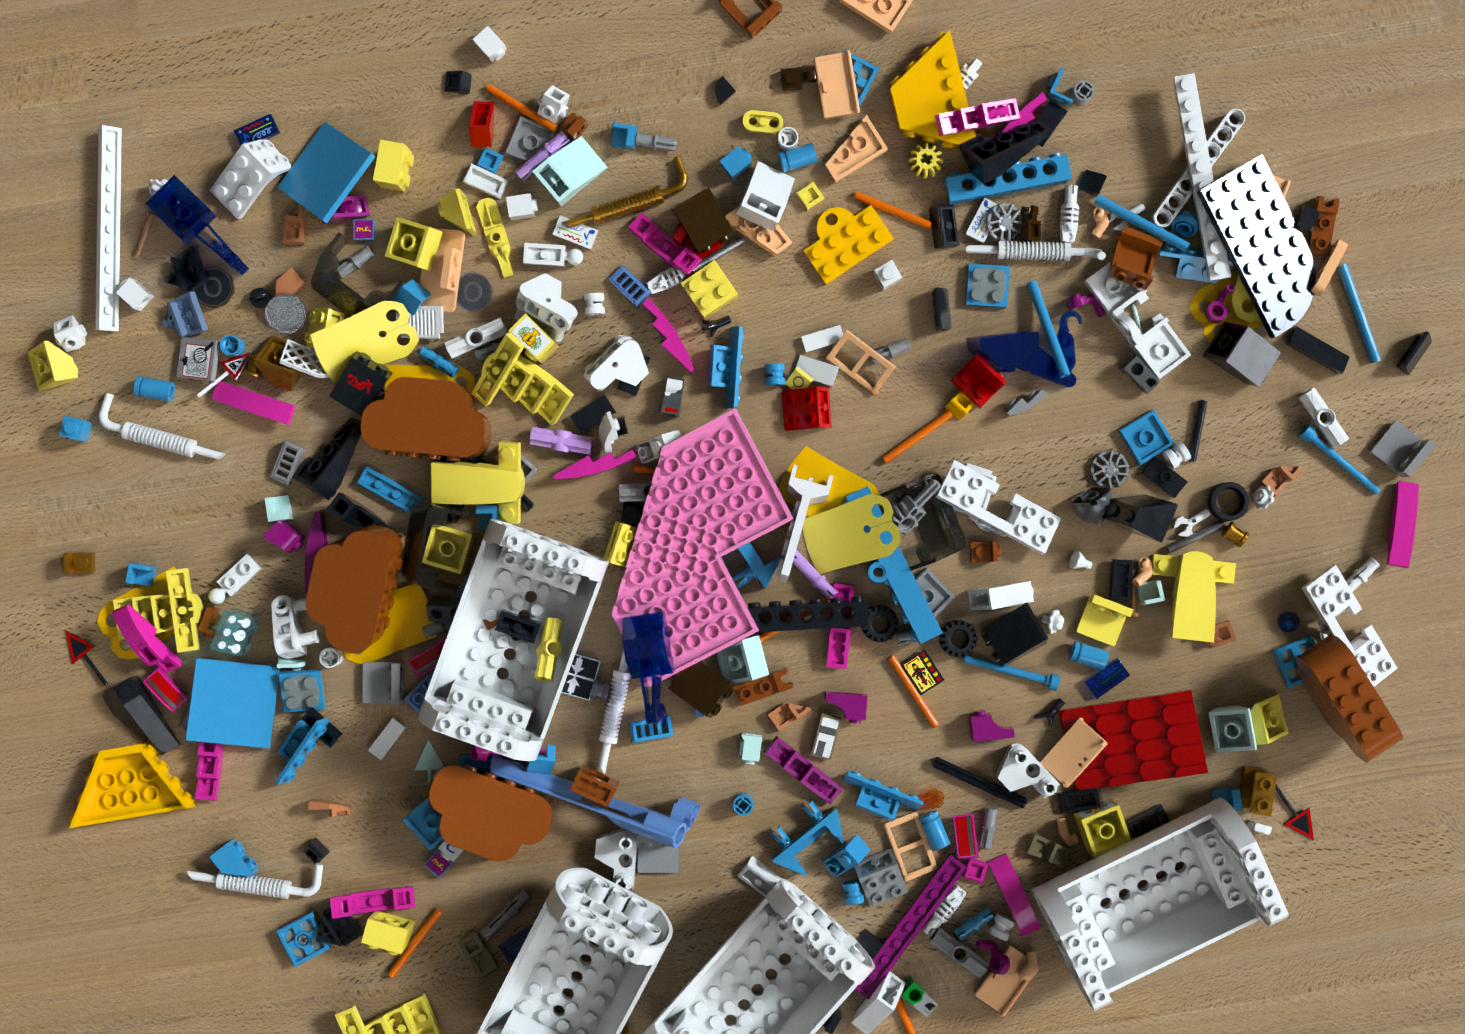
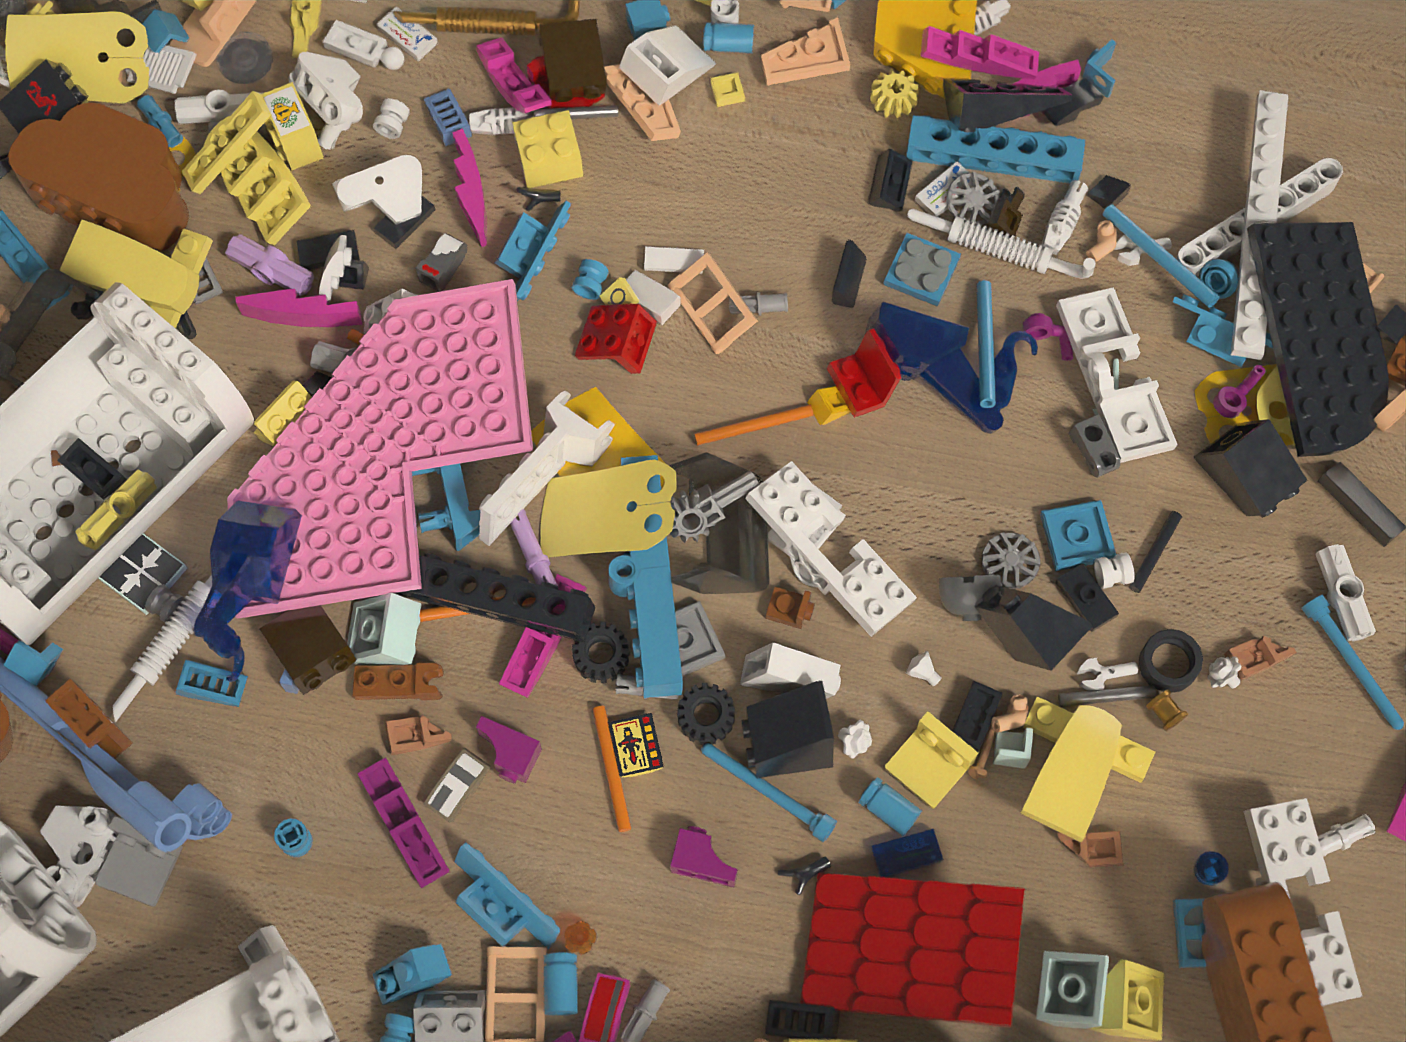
camera: 20 degrees right, 20 degrees down
(449, 549) = (43, 333): light yellow brick -> none
(750, 748) = (340, 760): light aqua window -> none
(789, 847) = (345, 931): dark azure hose -> none
(846, 242) = (752, 156): yellow plate -> none
(887, 275) = (790, 208): white brick -> none
(892, 210) = (830, 140): orange bar -> none
(979, 782) = (658, 939): black axle -> none
(1015, 775) = (717, 941): white piece -> none
(1016, 407) = (912, 432): light grey slope -> none
(1075, 748) = (811, 935): light nougat door -> none
(1081, 96) = (1131, 81): light grey wheel -> none
(1134, 258) = (1136, 292): dark orange panel -> none

